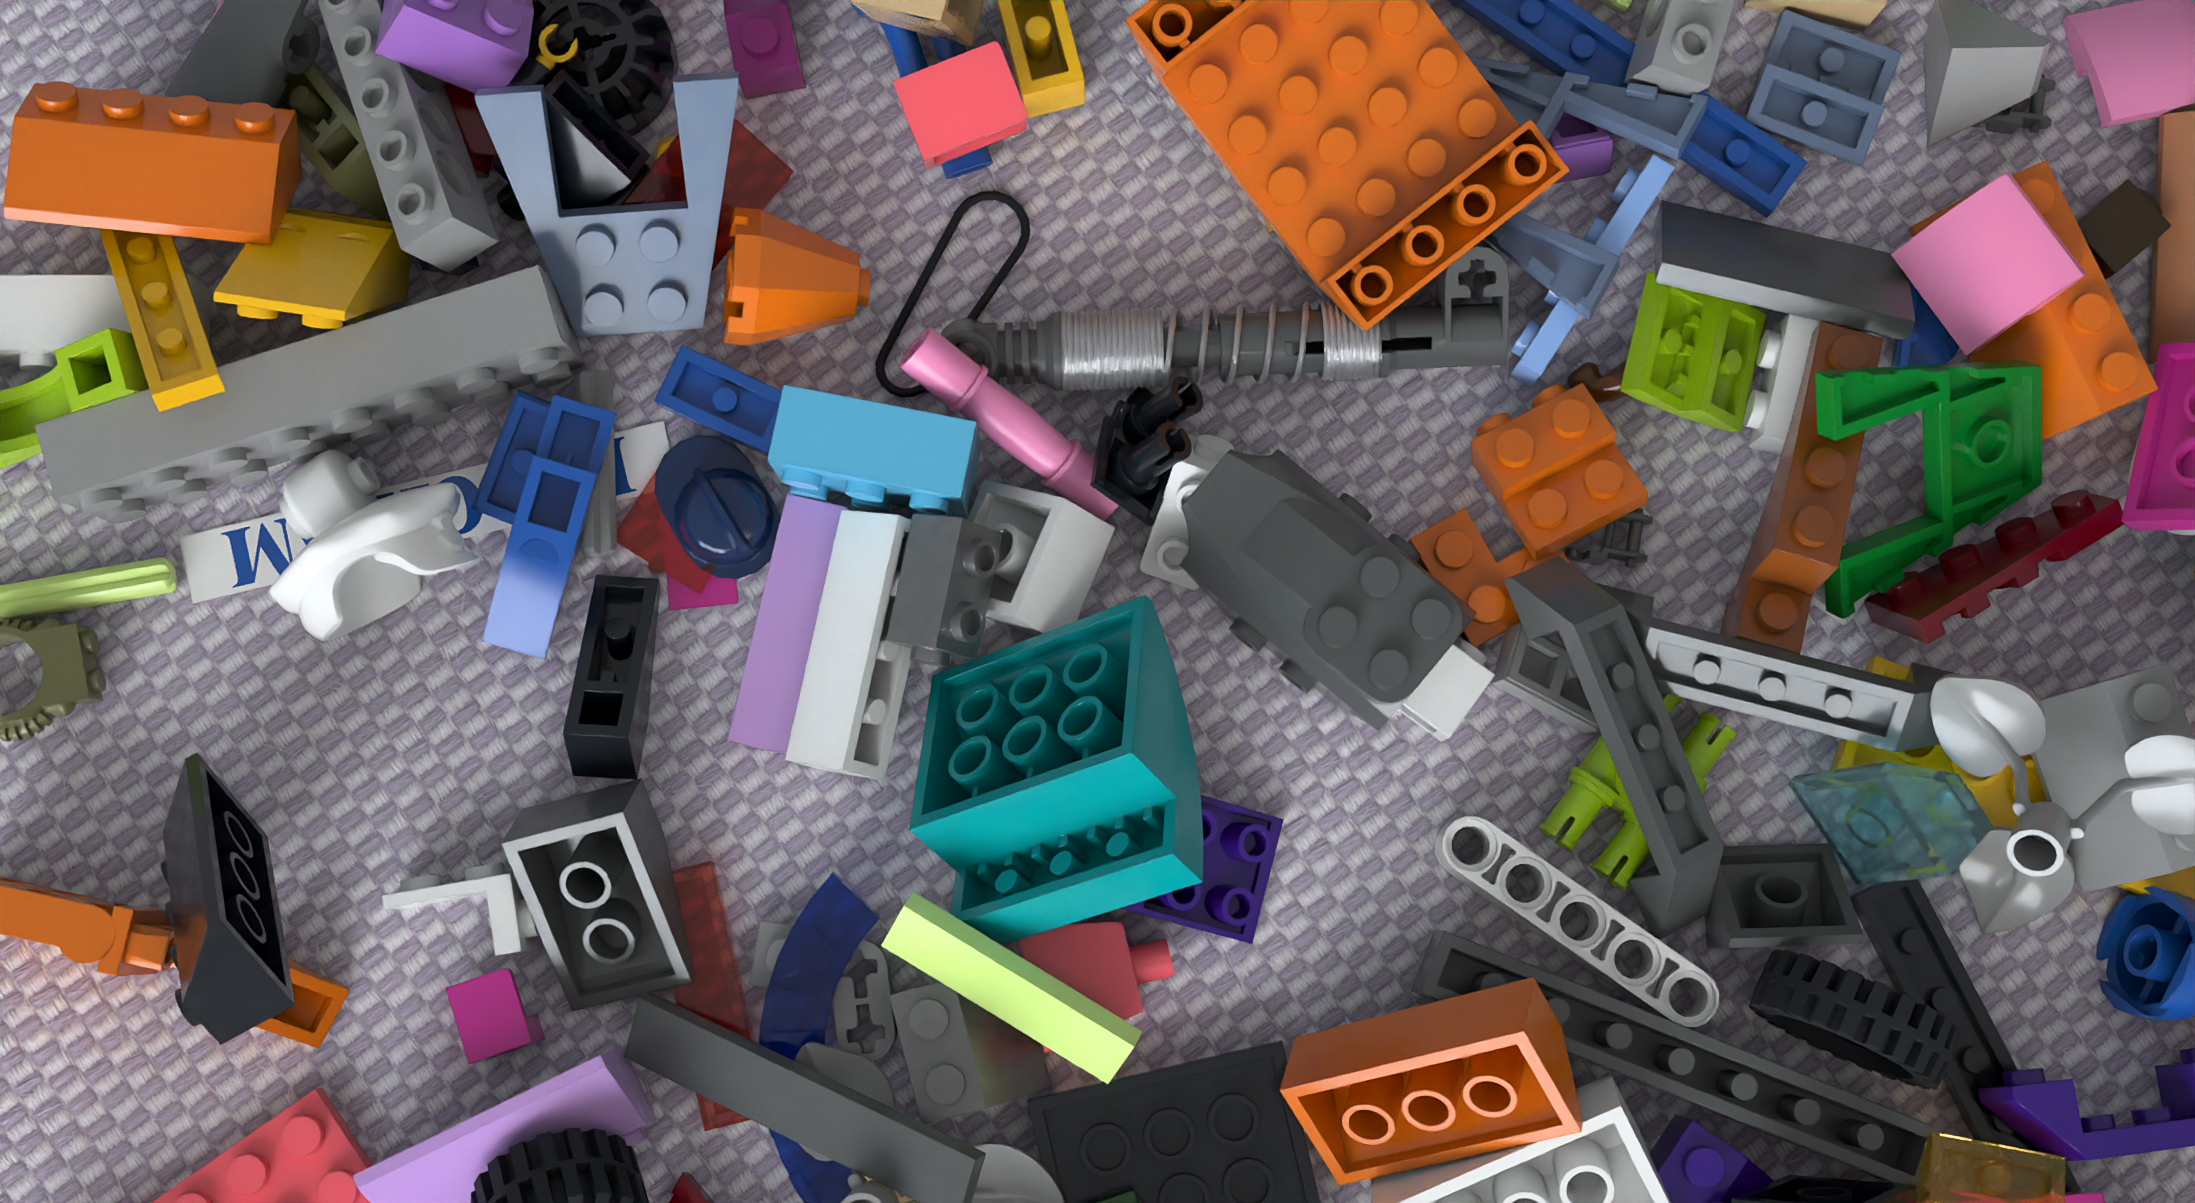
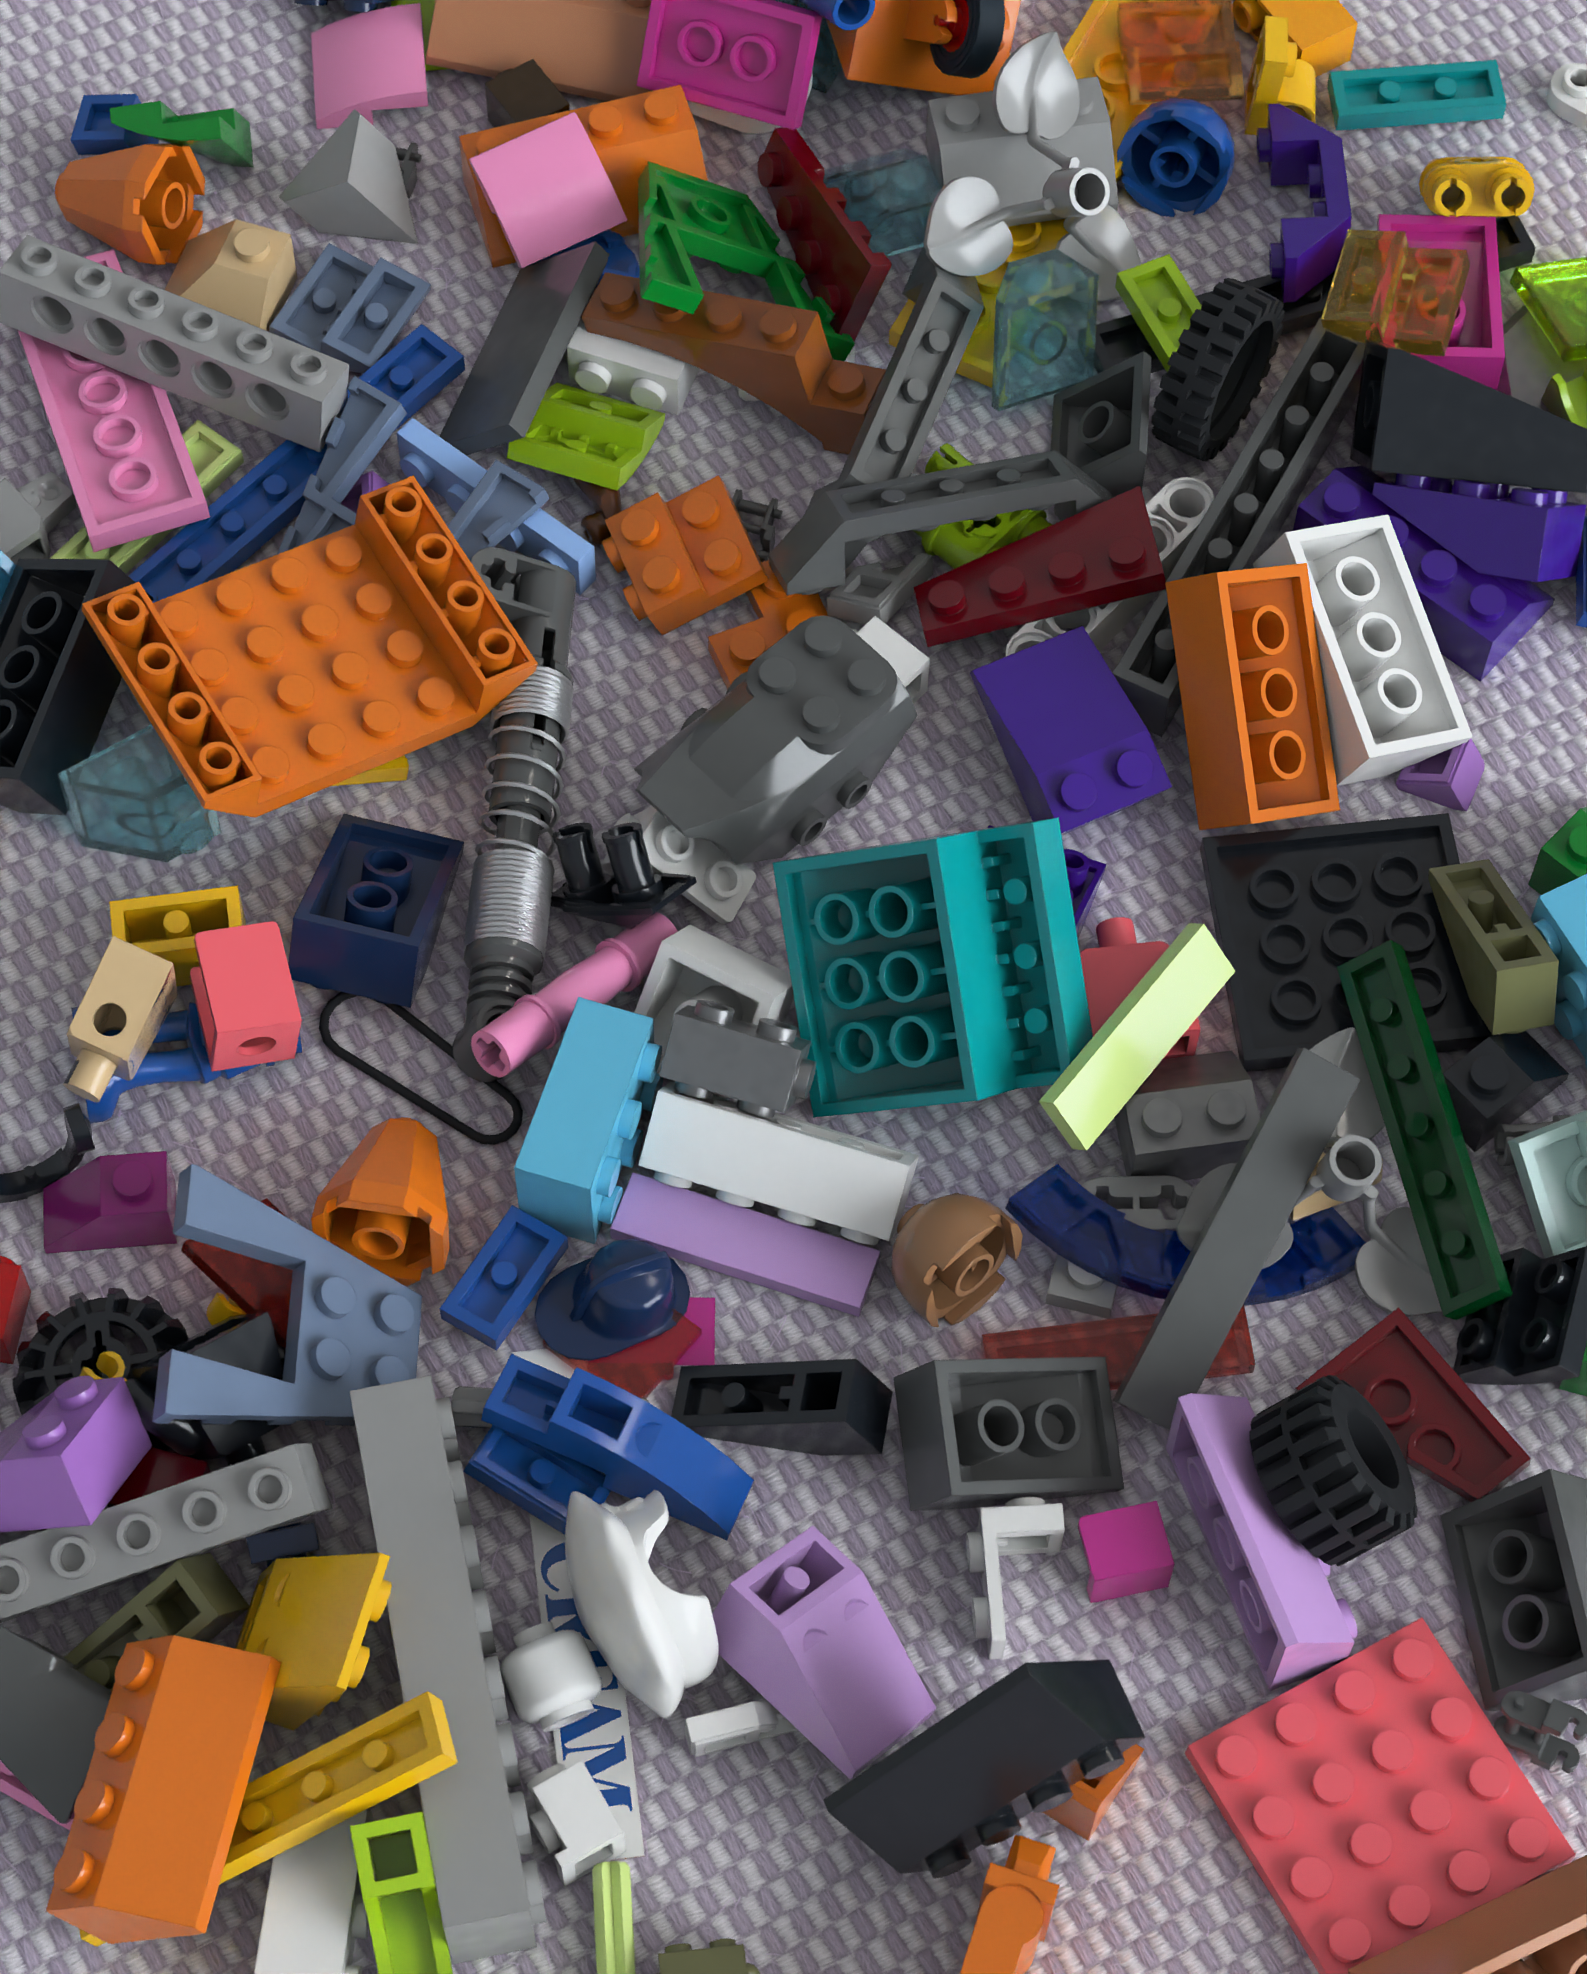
camera: 85 degrees left, 20 degrees down
(199, 535) = (574, 1820): none -> white brick
(303, 676) = (734, 1727): none -> white tile
(355, 740) = (822, 1651): none -> lavender slope
(776, 819) = (951, 1256): none -> medium nougat cylinder
(1106, 221) = (373, 910): none -> dark blue slope
(1377, 892) = (1069, 732): none -> dark purple slope
(1574, 866) = (1062, 569): none -> dark red wing
(1939, 954) = (1159, 303): none -> lime plate
(2056, 627) = (889, 197): none -> clear light blue slope

